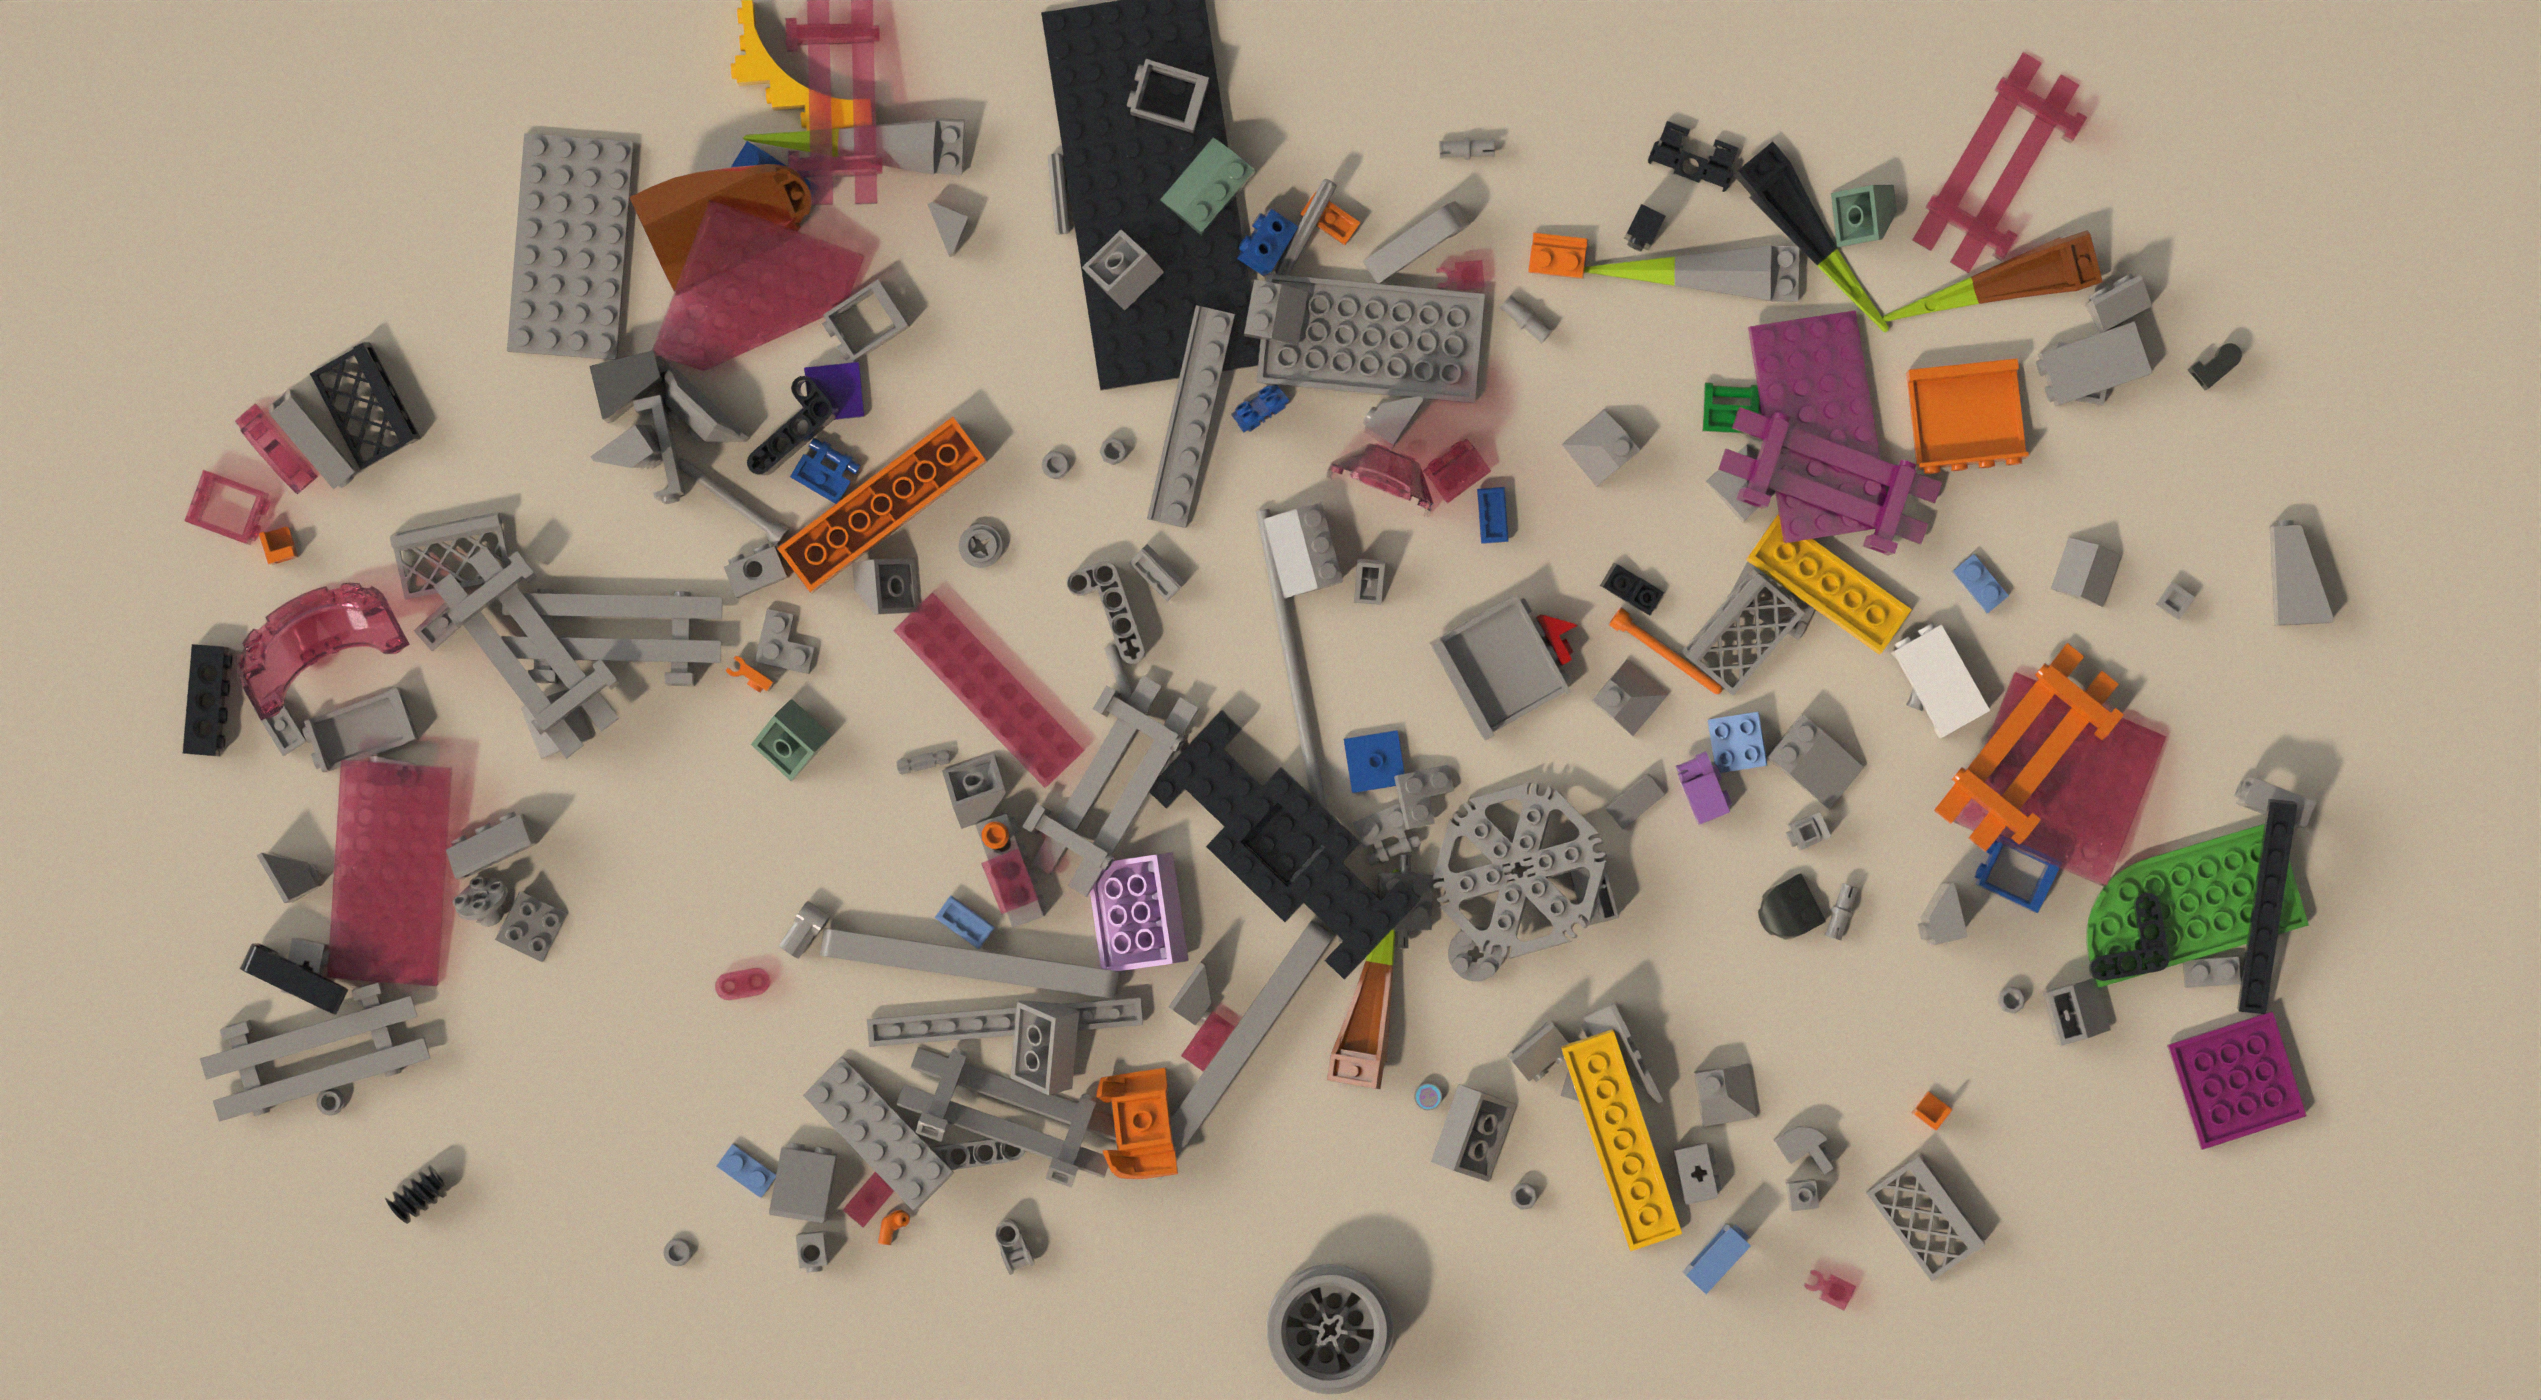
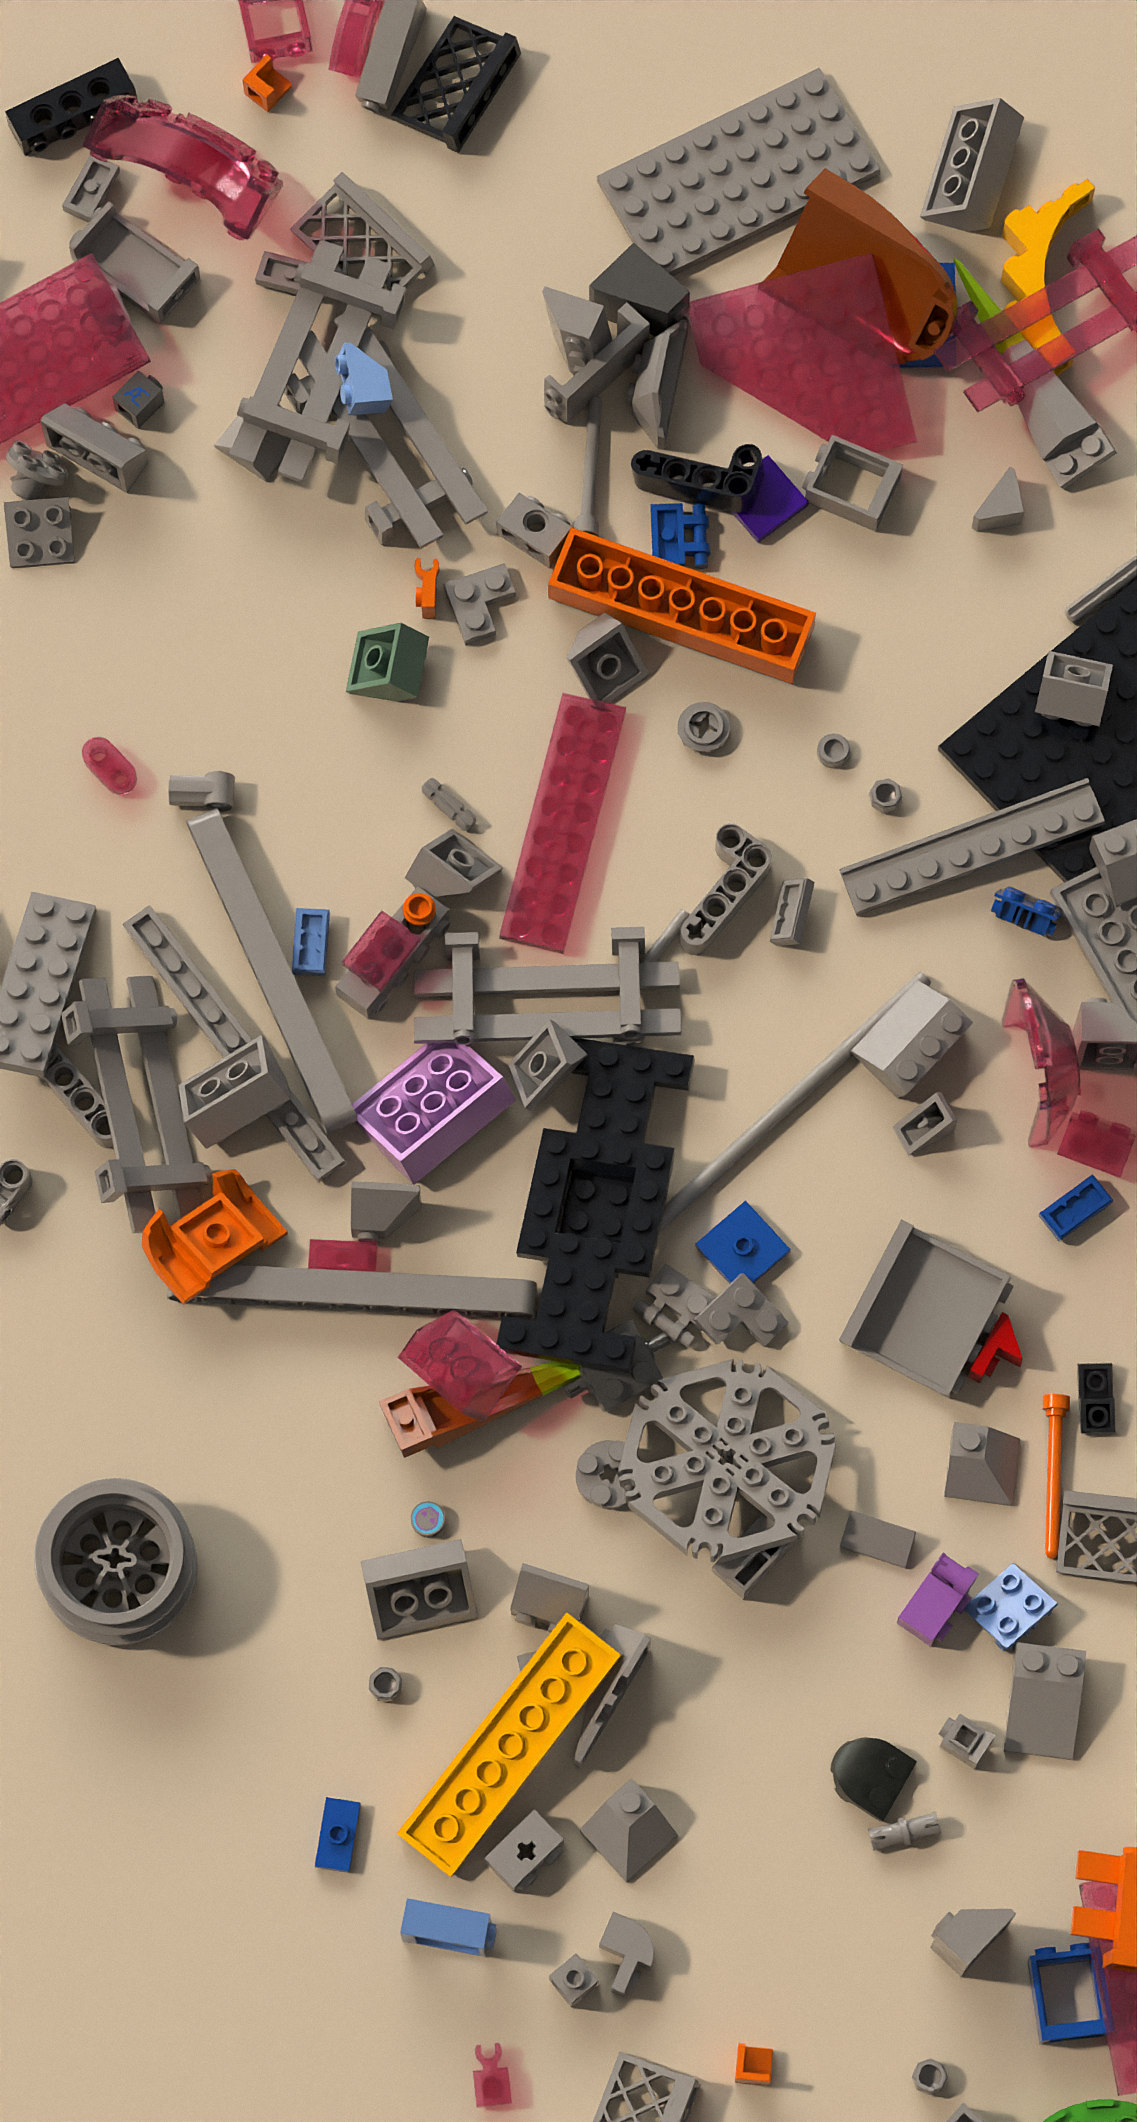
camera: 60 degrees right, 15 degrees down
(472, 791) = (139, 398): none -> dark grey brick
(571, 626) = (364, 382): none -> light blue slope
(674, 73) = (972, 165): none -> light grey slope
(1162, 817) = (544, 1063): none -> light grey slope
(1340, 1011) = (460, 1364): none -> clear pink slope
(1605, 1290) = (337, 1835): none -> blue plate

